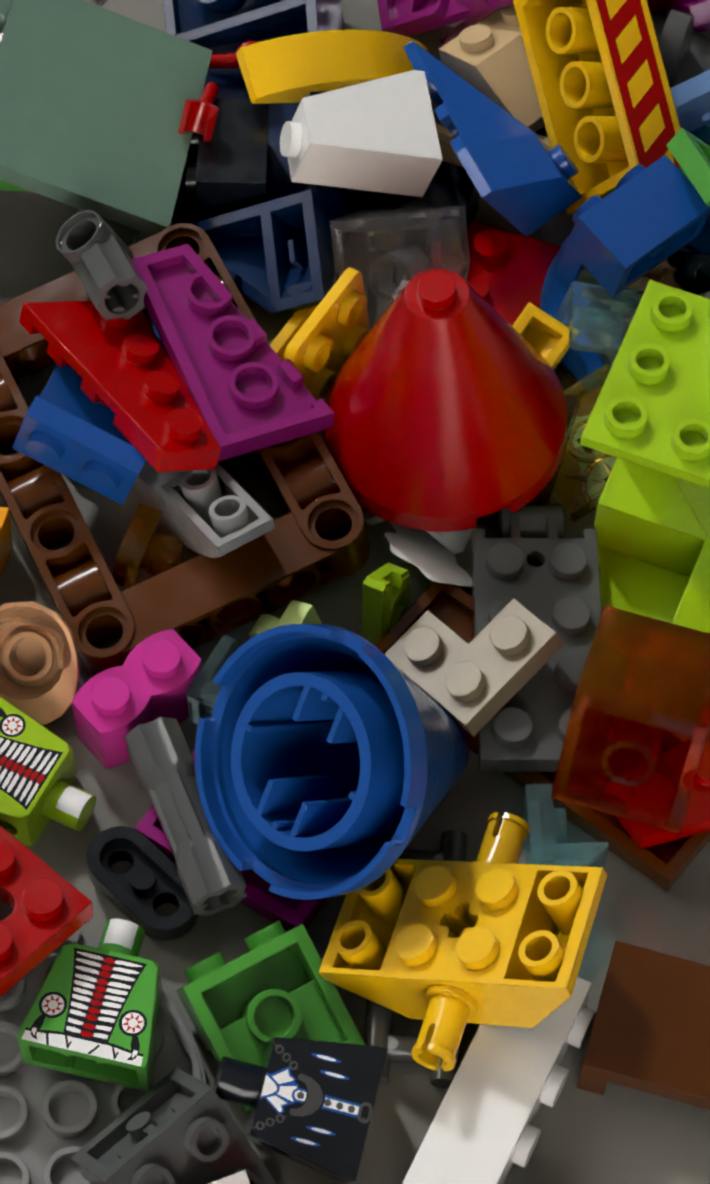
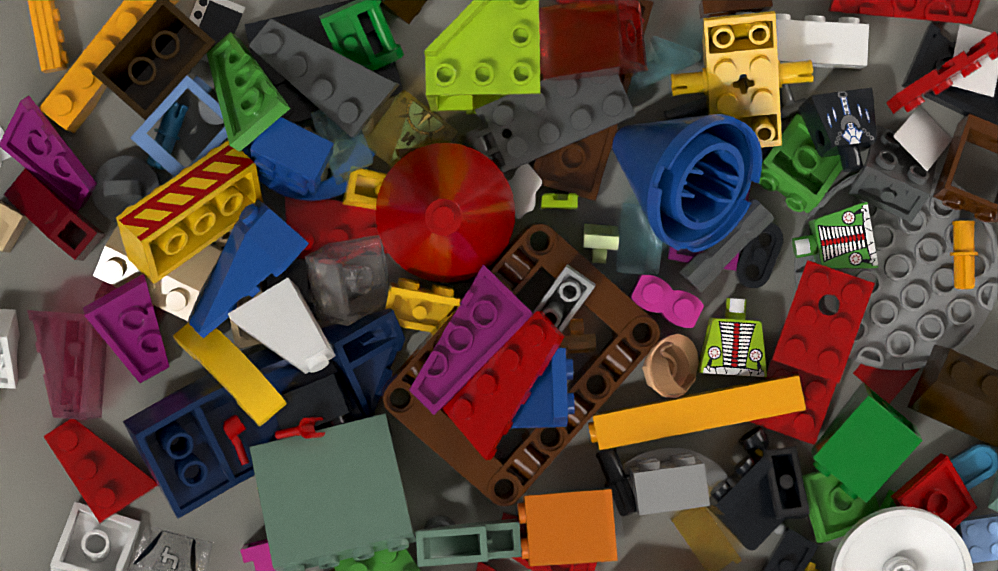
camera: 115 degrees left, 30 degrees up
(102, 265) = (444, 427): dark grey piece -> none
(480, 676) = (597, 137): plate -> none

